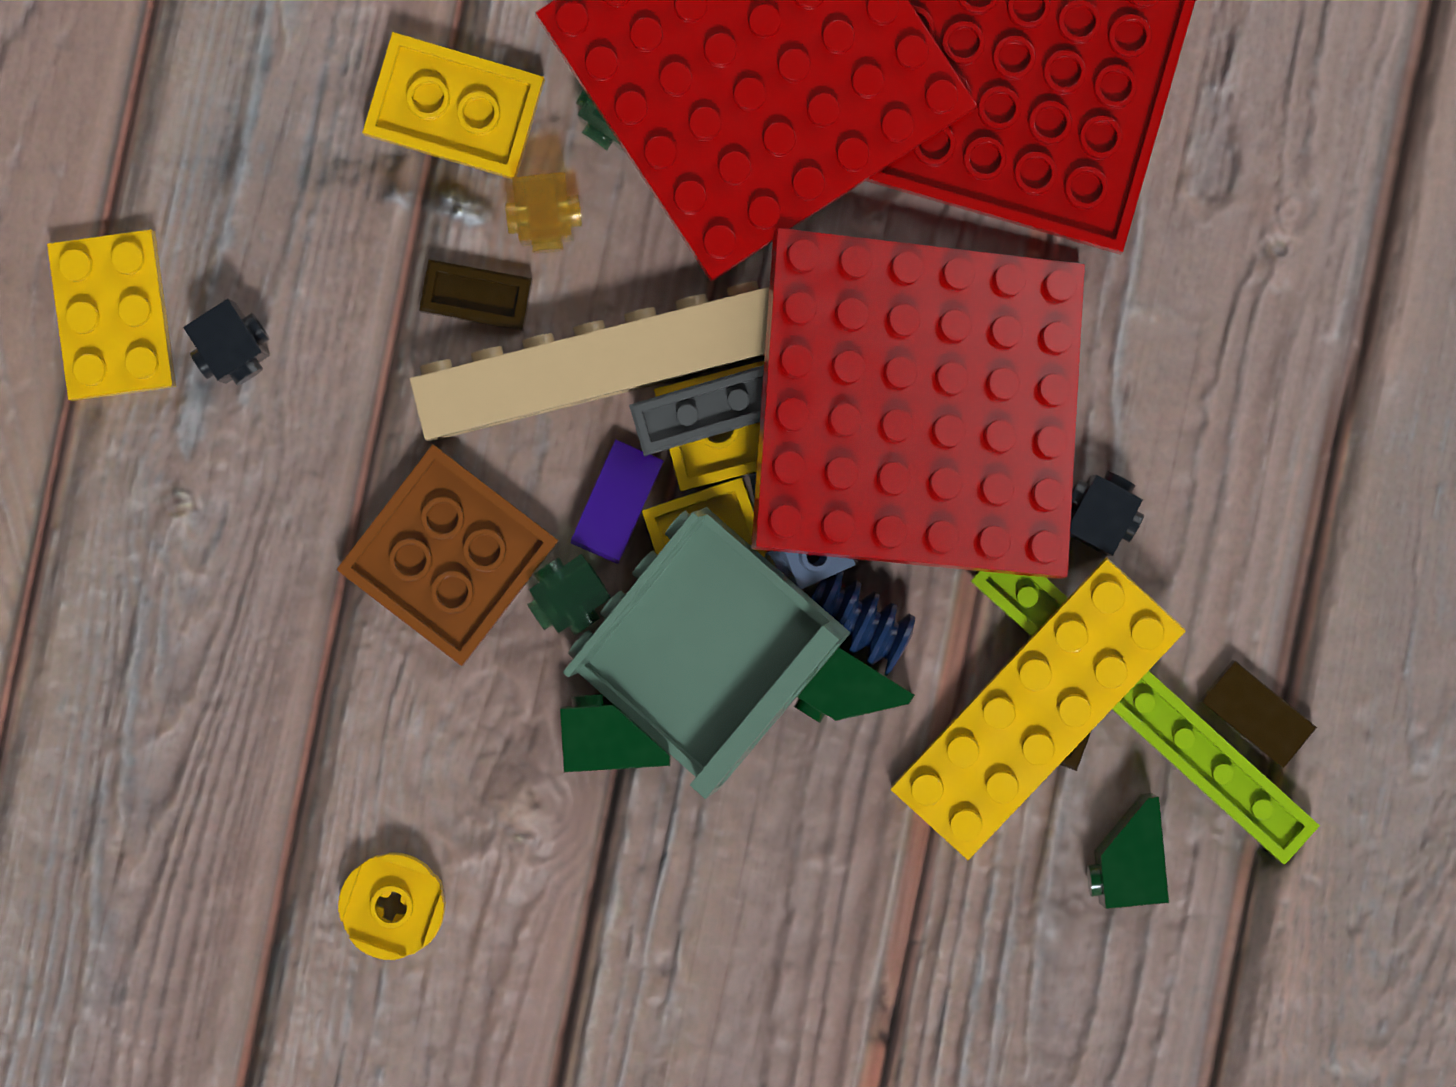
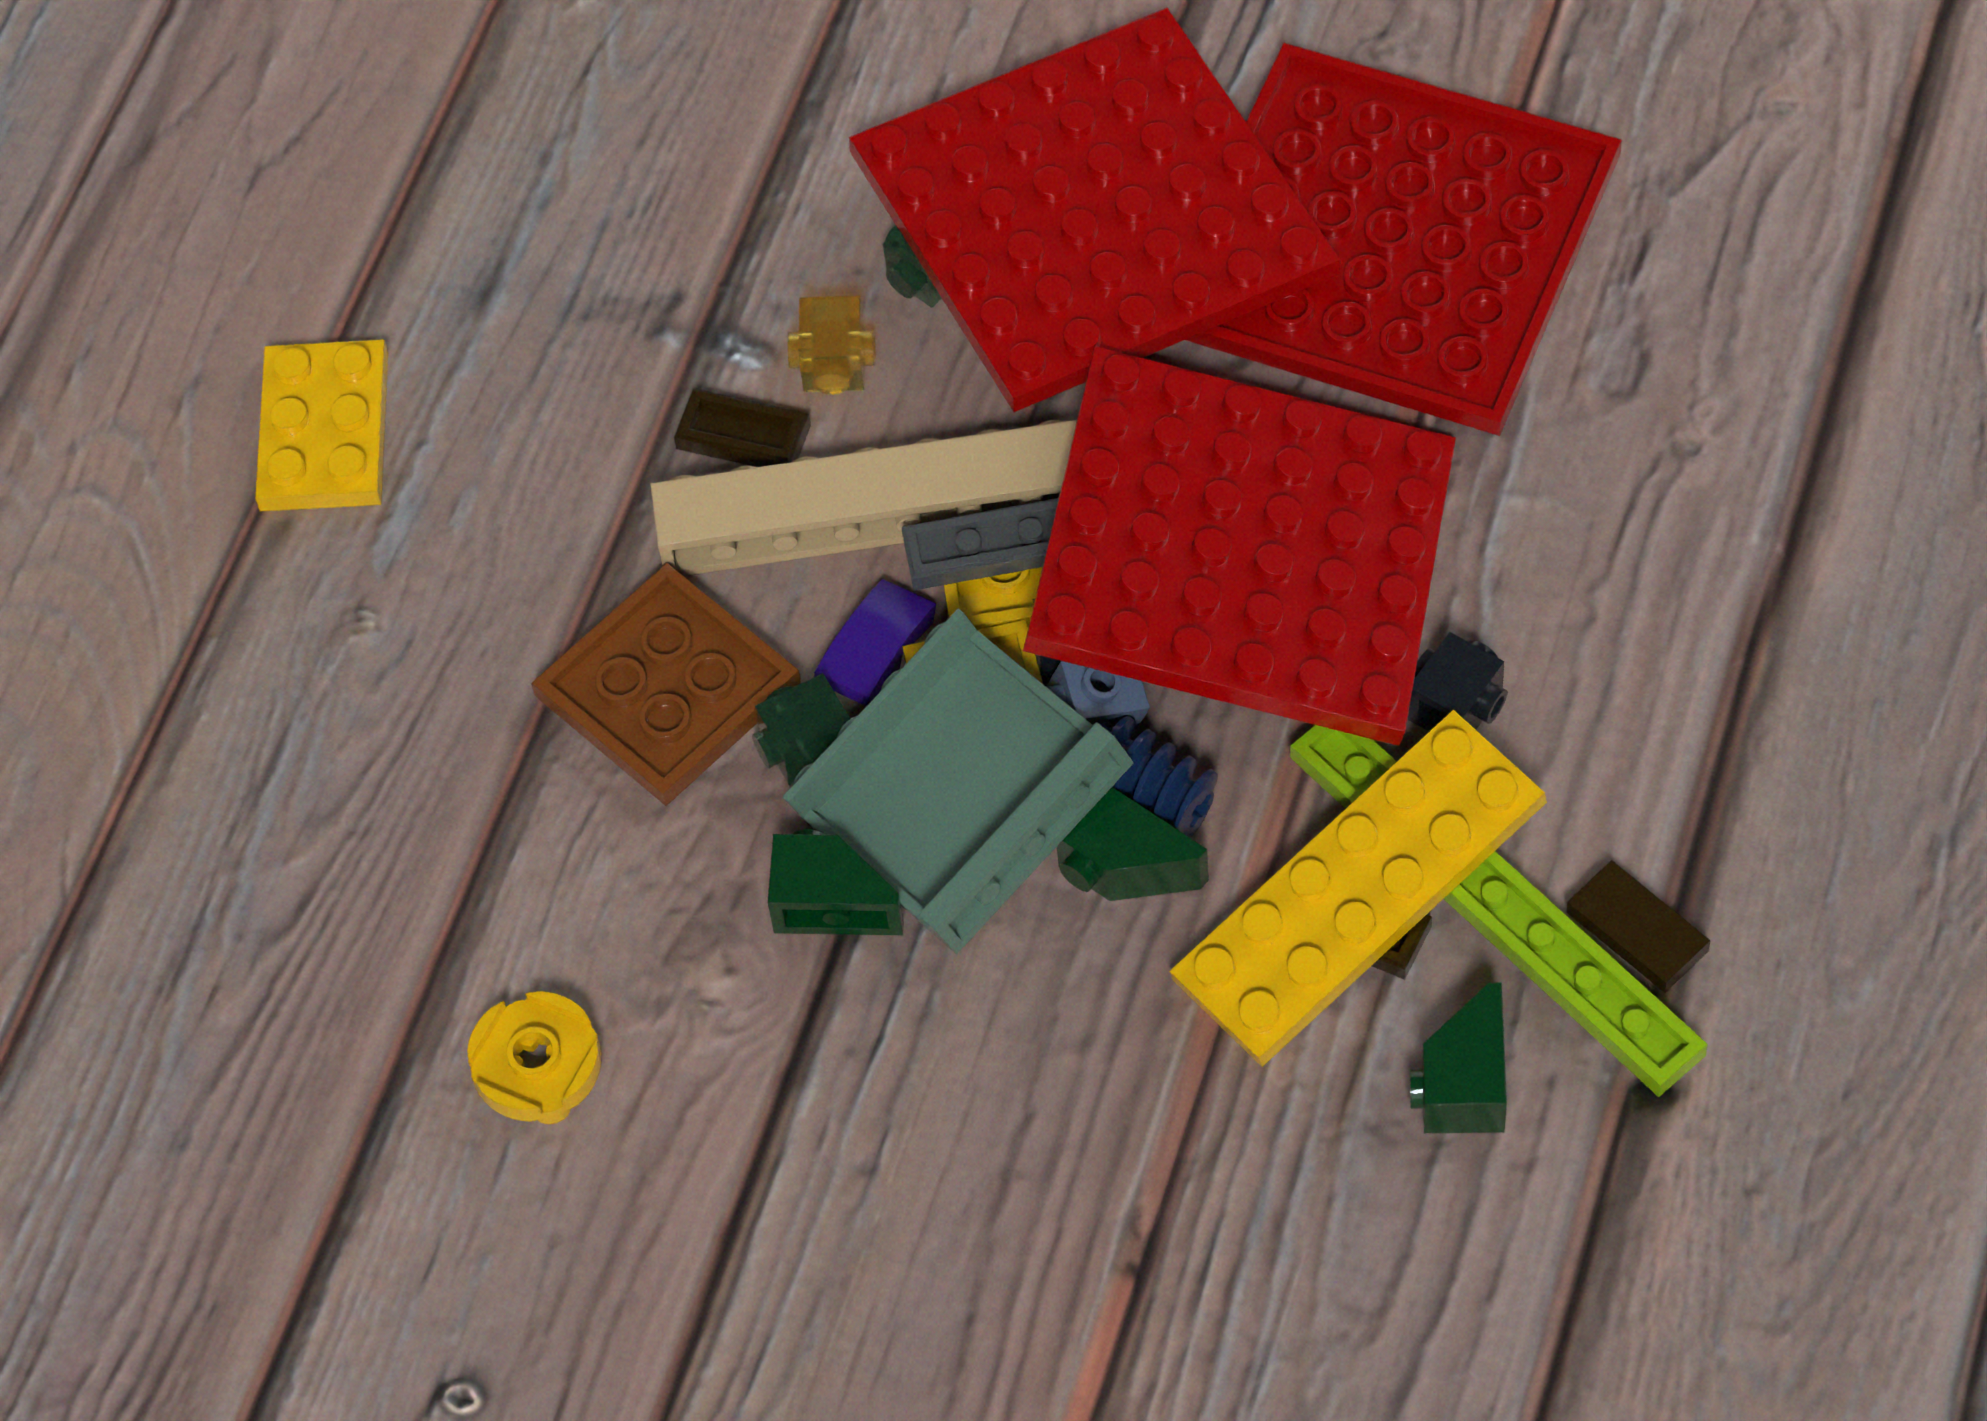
camera: 10 degrees right, 30 degrees down
(228, 343) = (448, 450): black brick -> none
(453, 106) = (745, 243): yellow plate -> none

